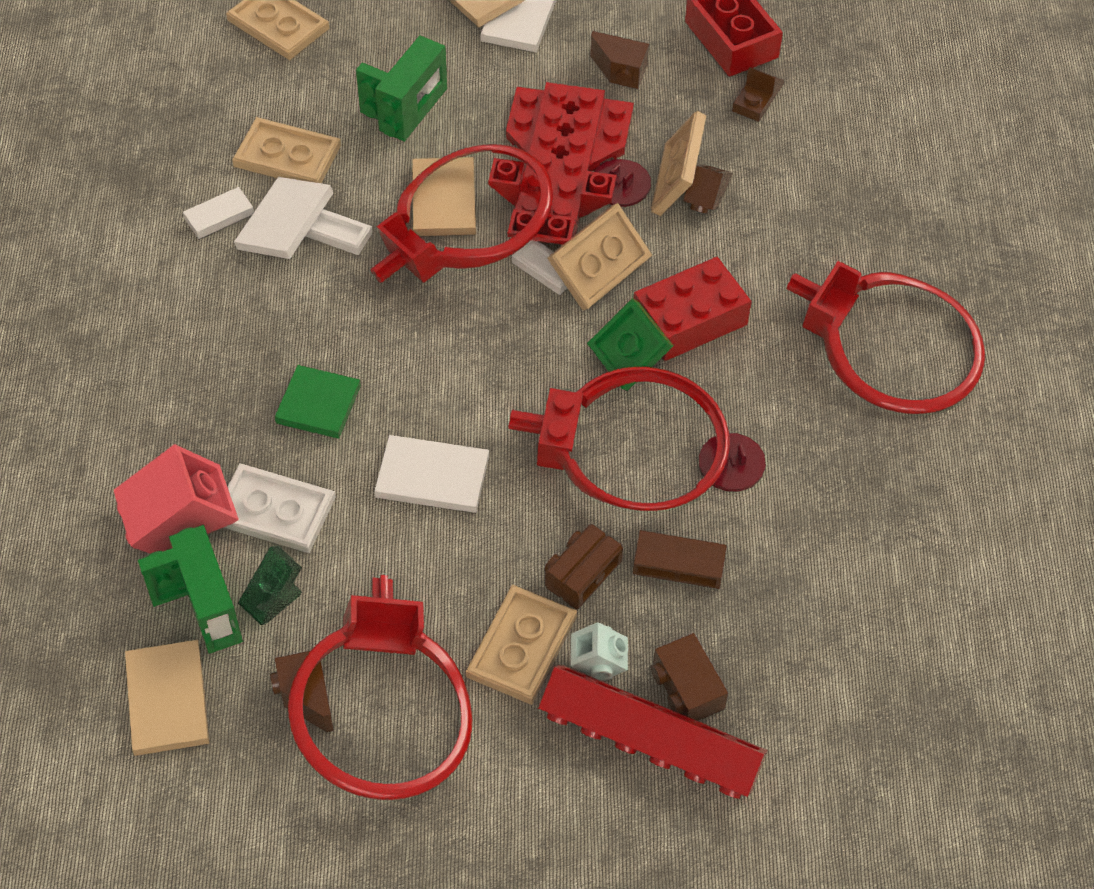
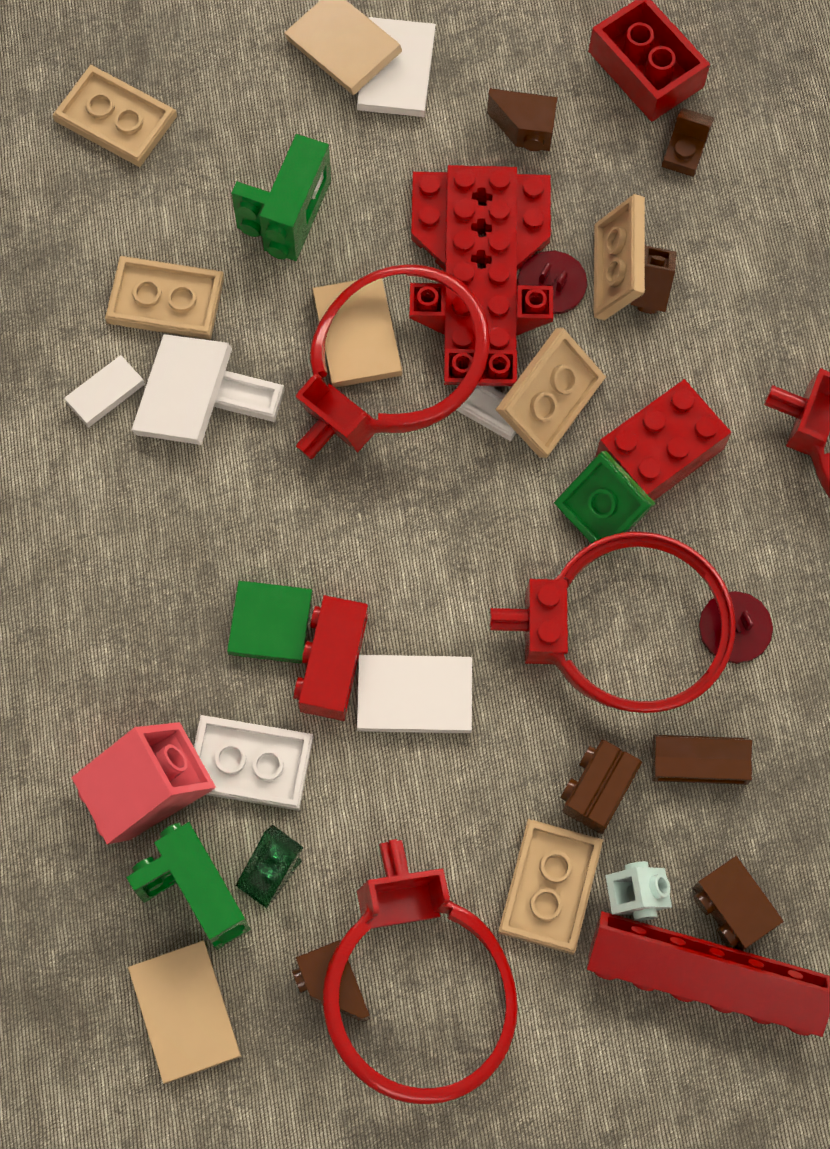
camera: 10 degrees left, 15 degrees up
(365, 433) = (331, 657): none -> red brick

